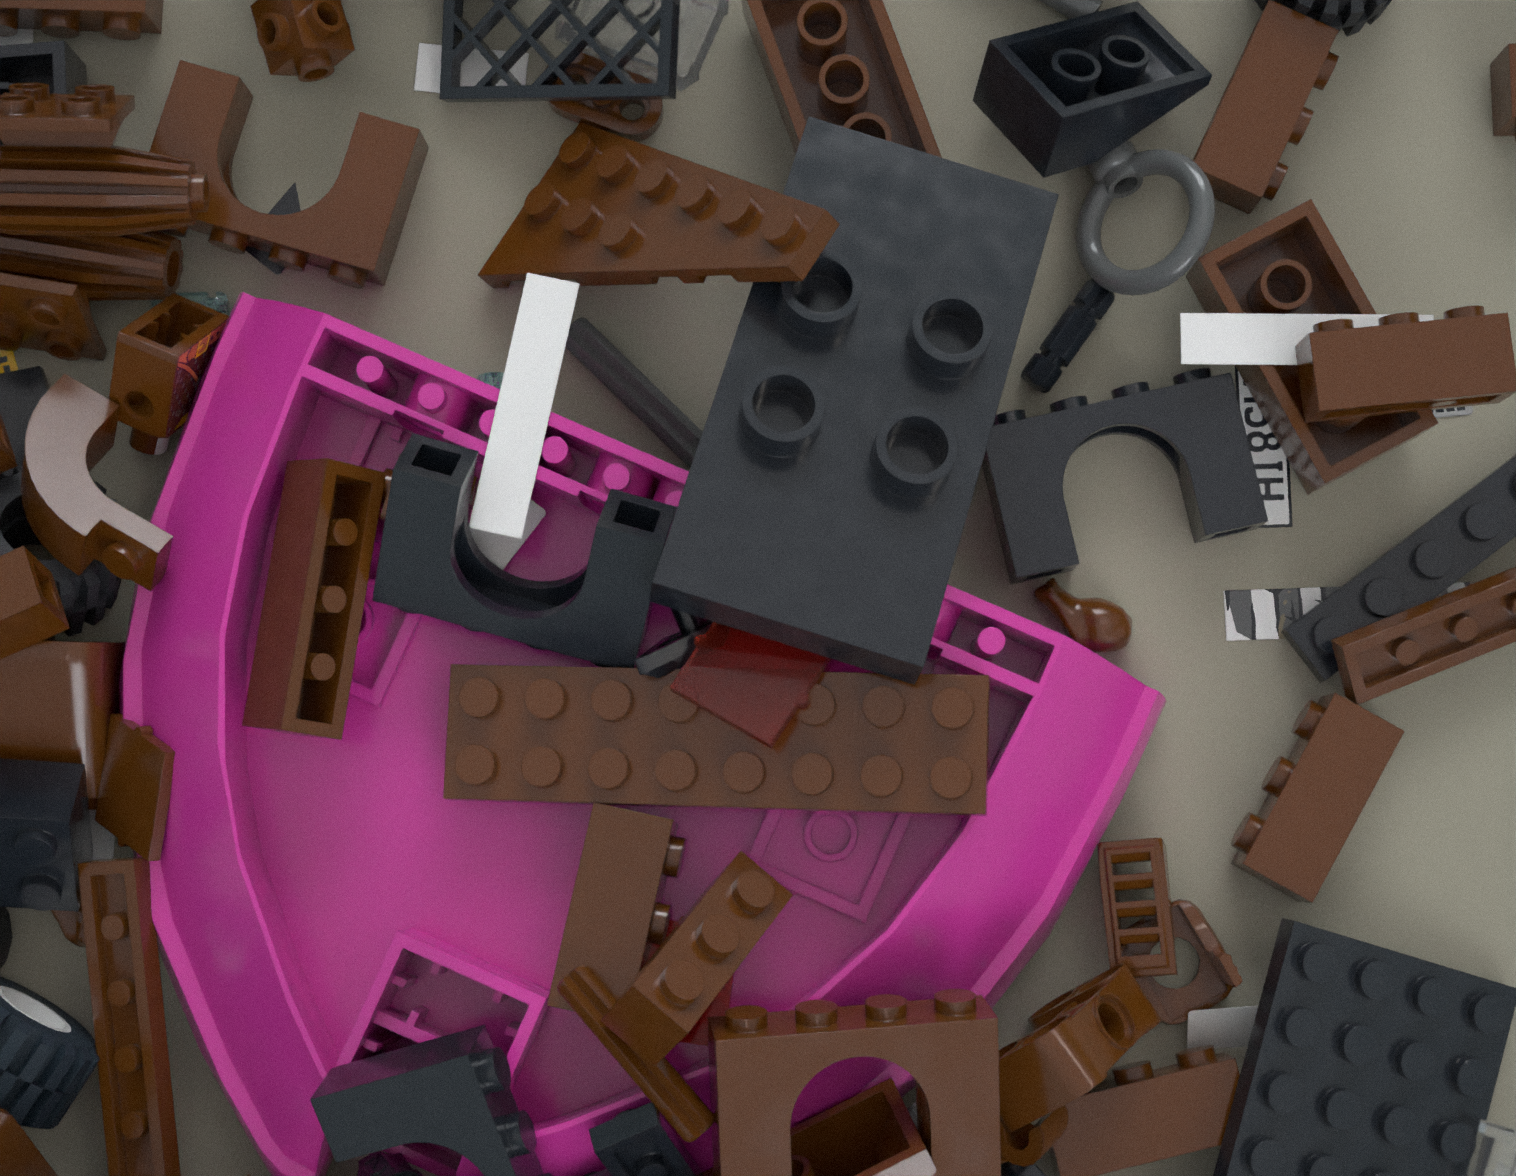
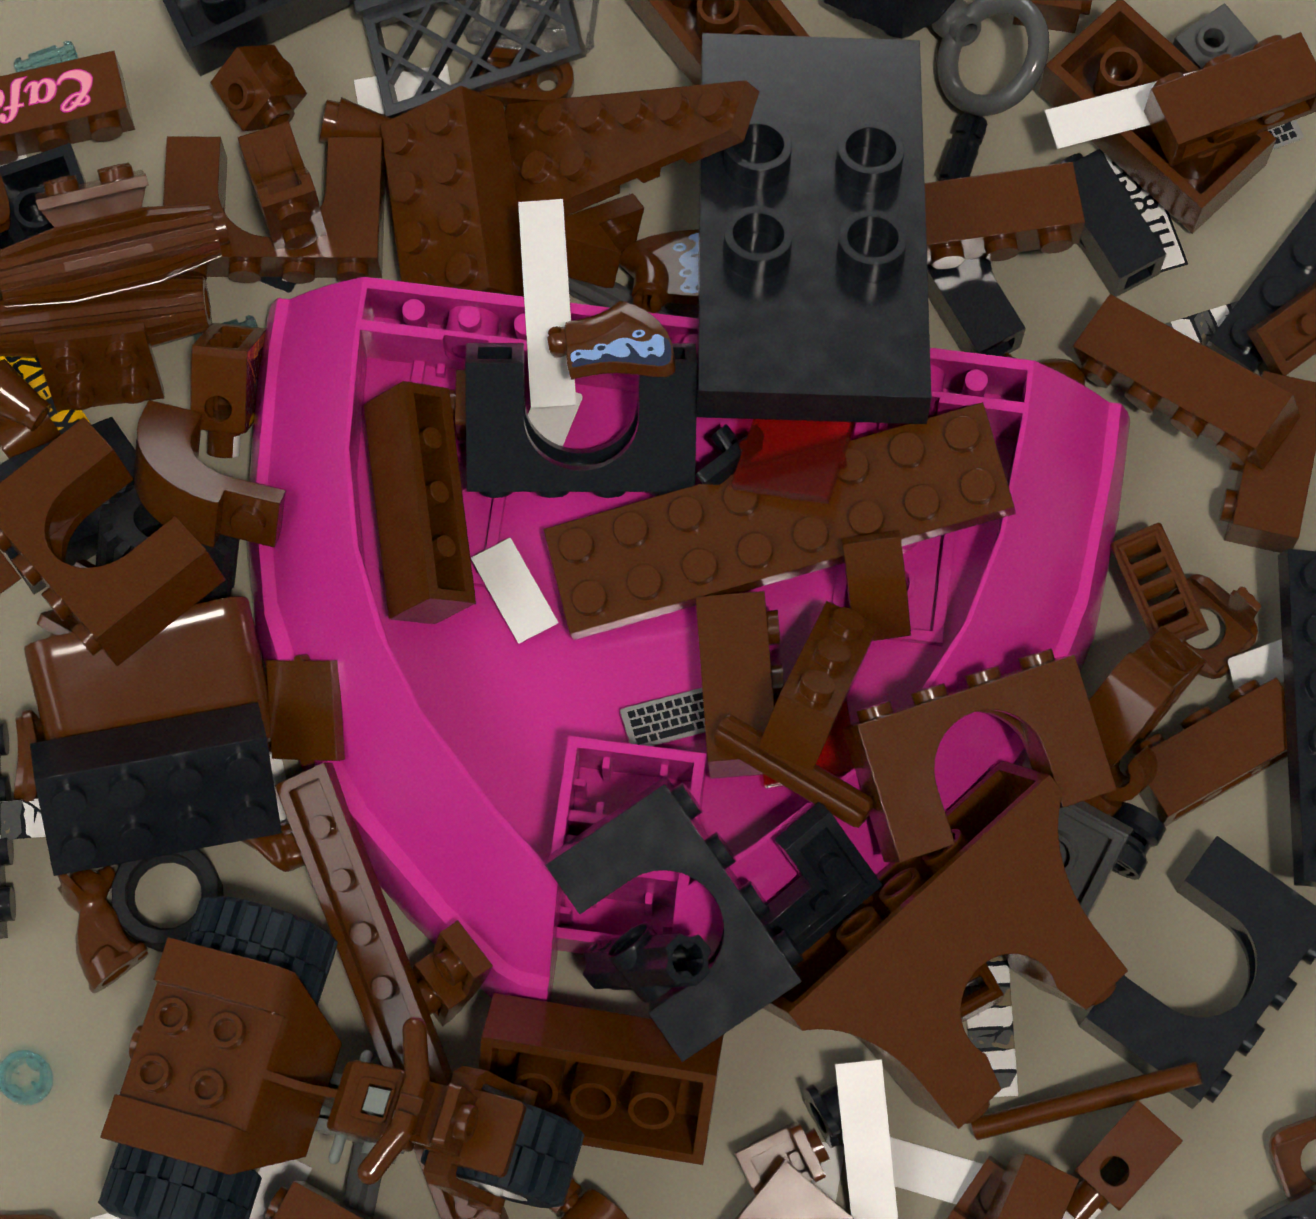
camera: 20 degrees left, 10 degrees down
(211, 1128) = (451, 973): none -> reddish brown slope
(284, 171) = (283, 187): none -> reddish brown arch
(401, 721) = (514, 590): none -> white sticker
(402, 100) = (350, 120): none -> reddish brown cone
(474, 232) = (454, 194): none -> reddish brown brick
(521, 921) = (665, 719): none -> sticker
(579, 488) = (614, 342): none -> reddish brown arm
(612, 317) = (599, 236): none -> reddish brown slope
(688, 373) = (663, 269): none -> reddish brown arm
(804, 845) = (878, 582): none -> reddish brown slope
(1090, 428) = (1002, 215): none -> reddish brown brick
(1243, 682) = (1186, 382): none -> reddish brown brick
(1405, 279) = (1214, 36): none -> dark grey brick

